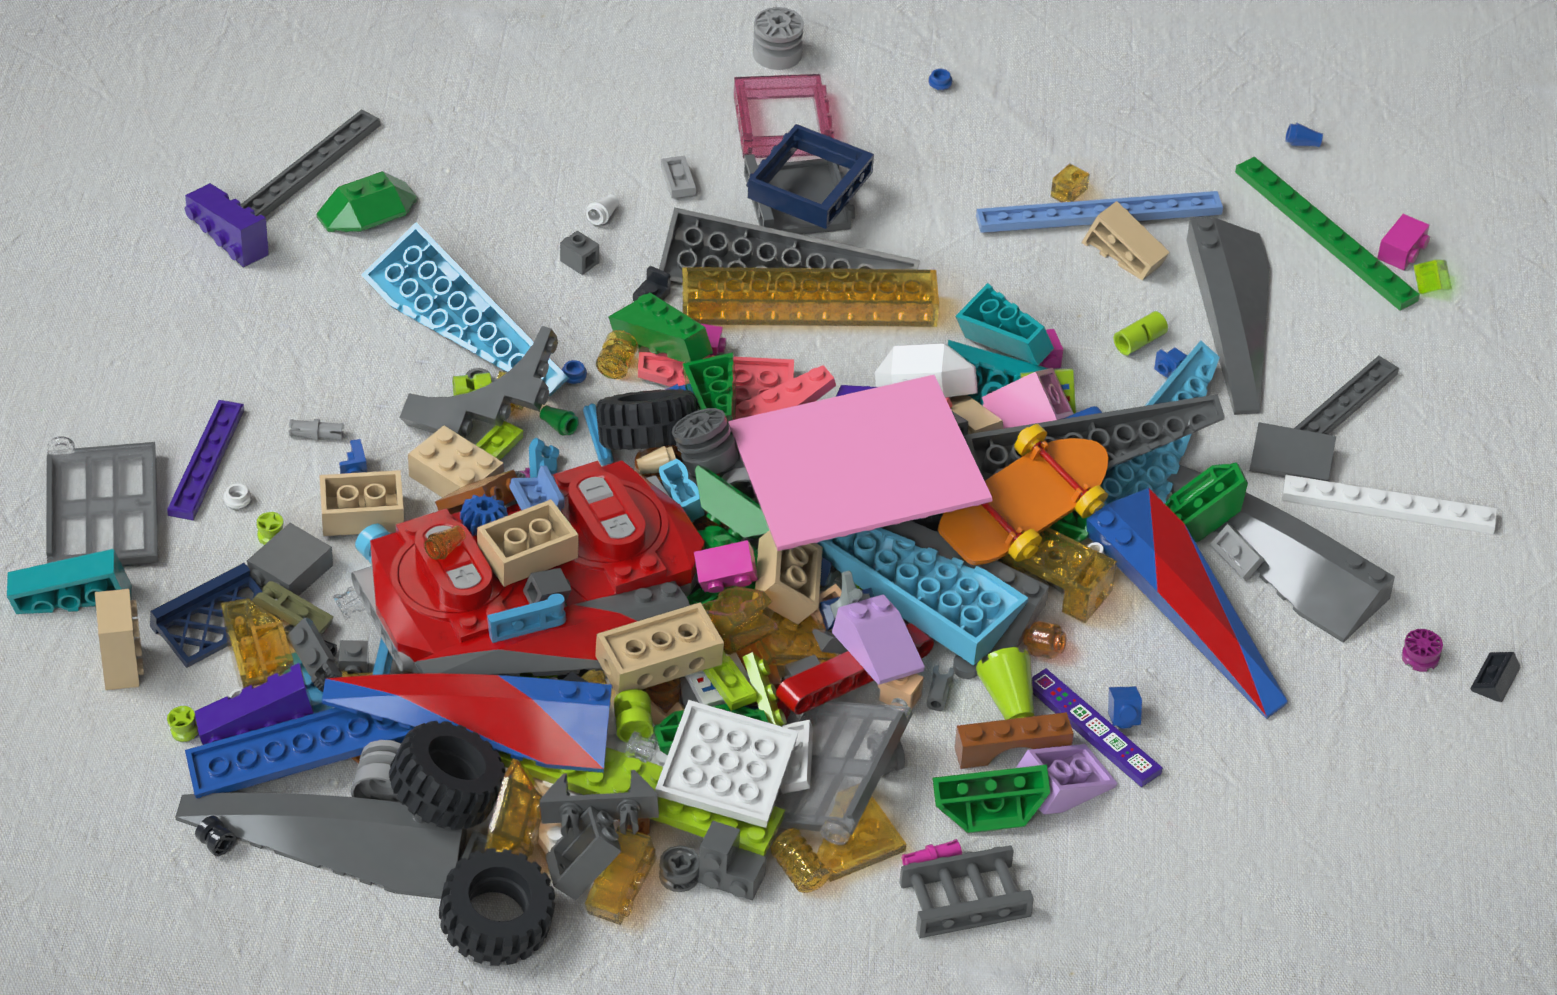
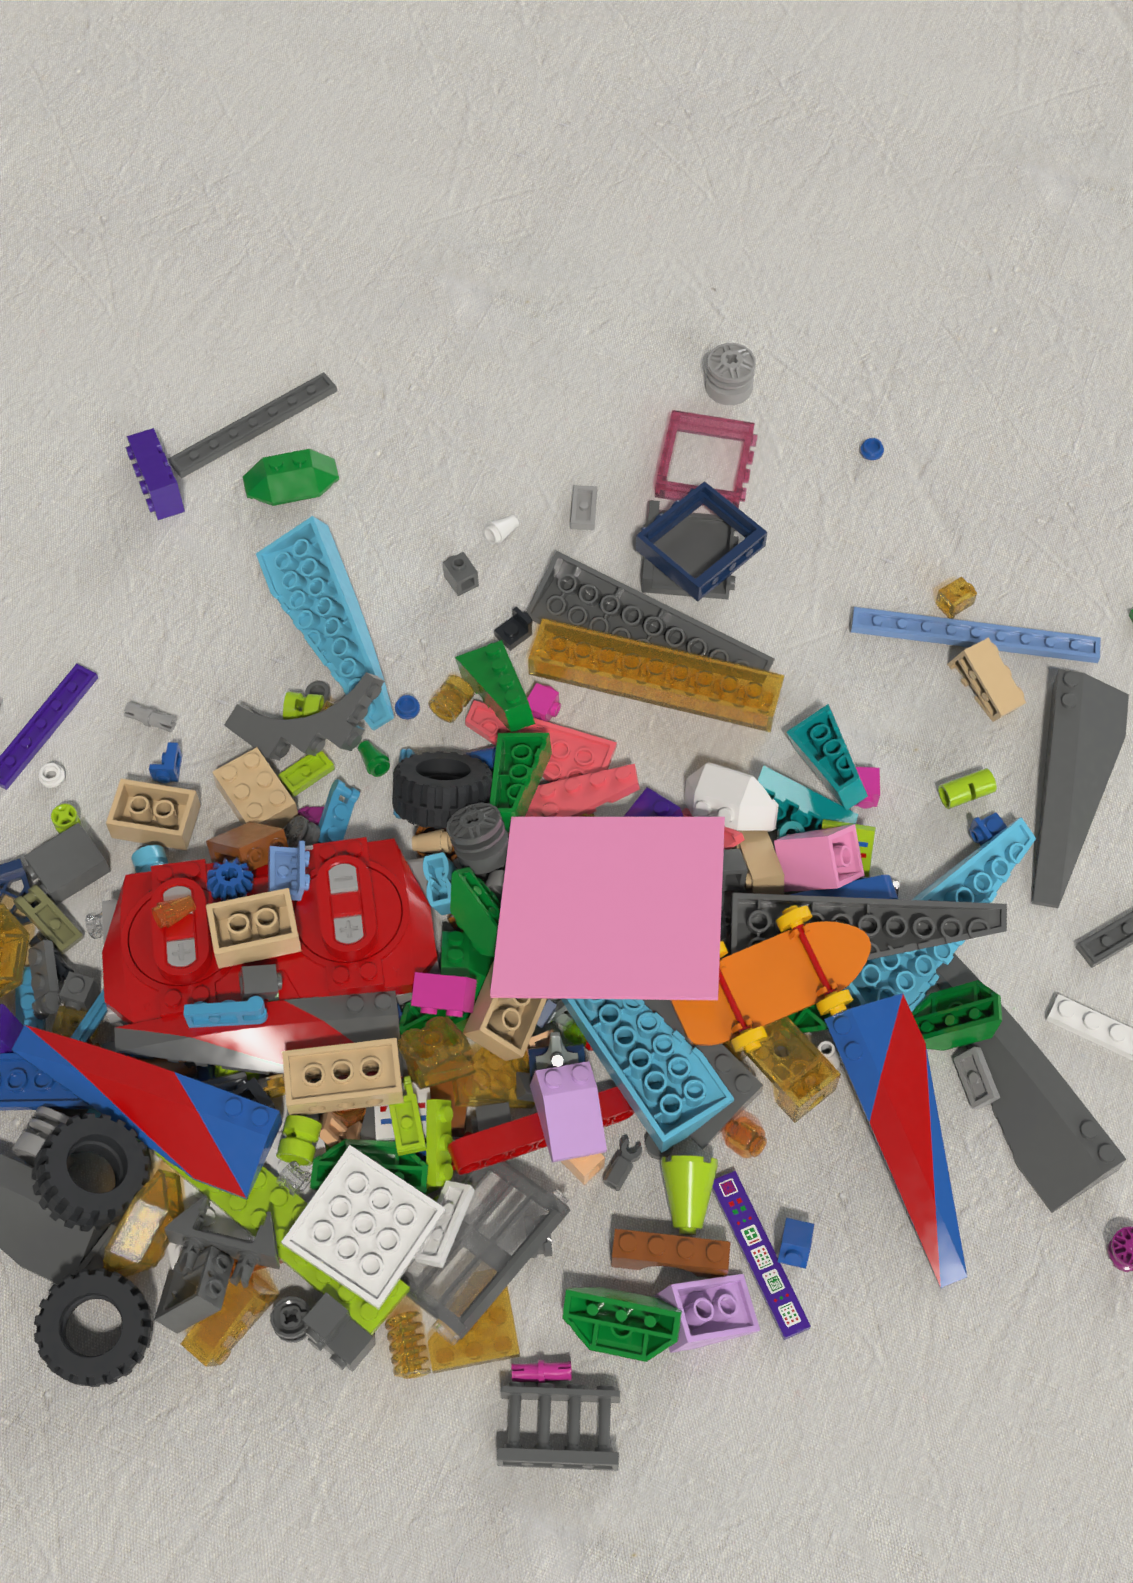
camera: 20 degrees right, 15 degrees up
(1292, 452) = (1074, 970): dark grey tile -> none

